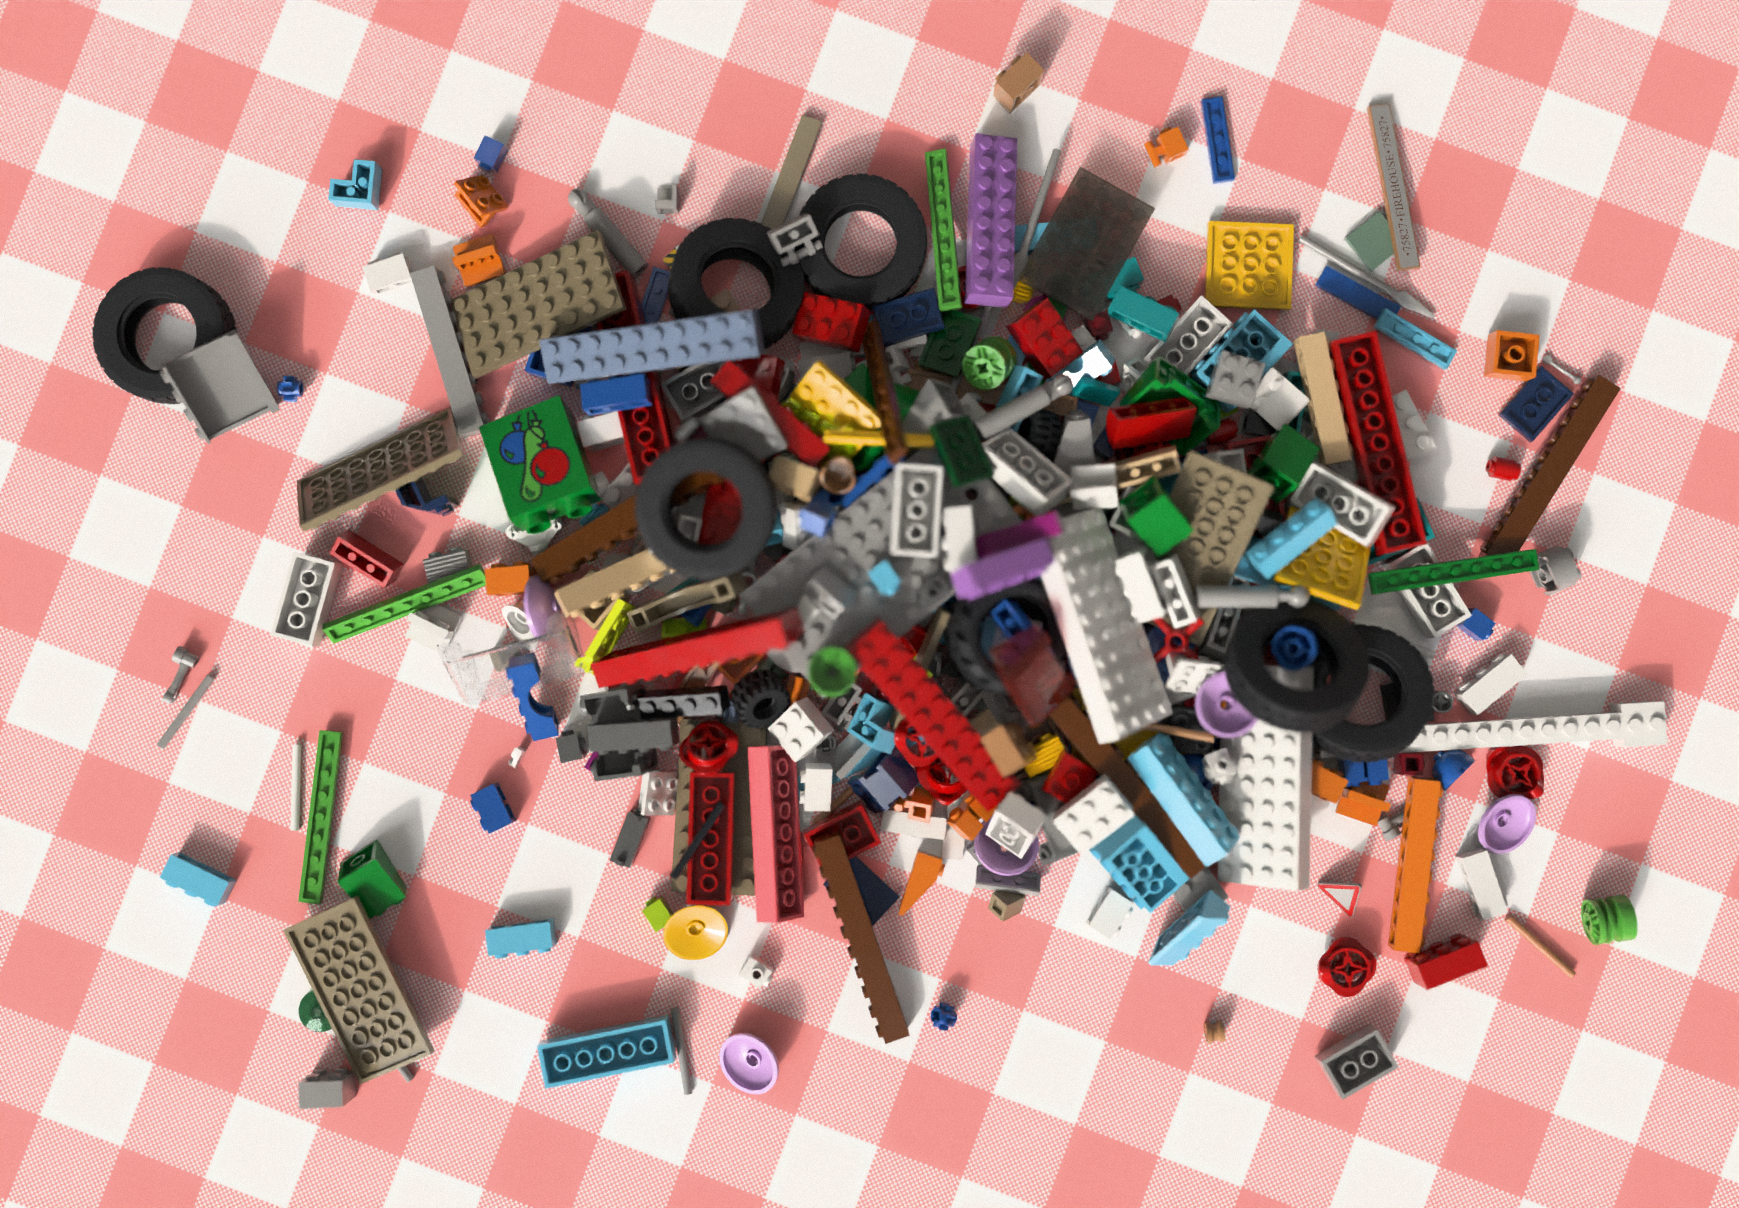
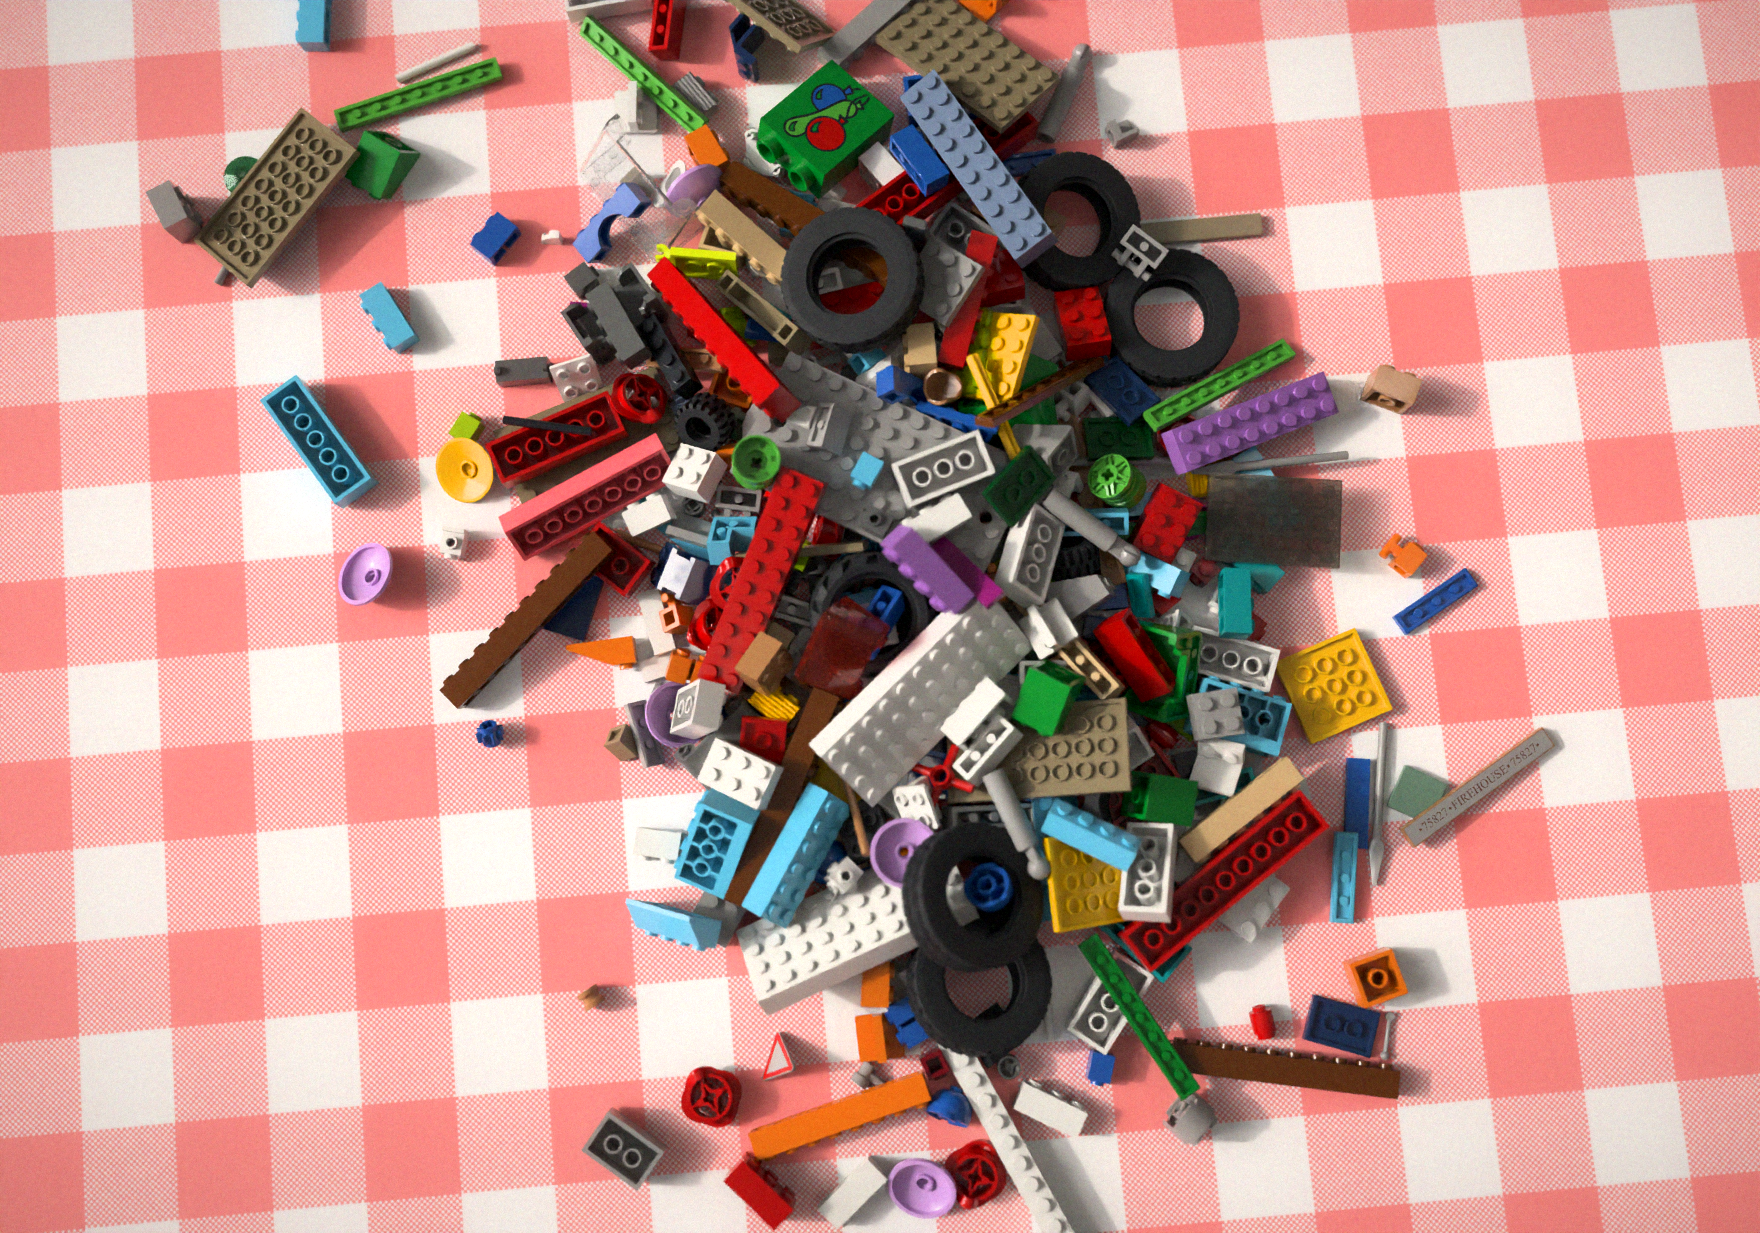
camera: 65 degrees right, 5 degrees down
(681, 1050) = (370, 497): light grey bar -> none

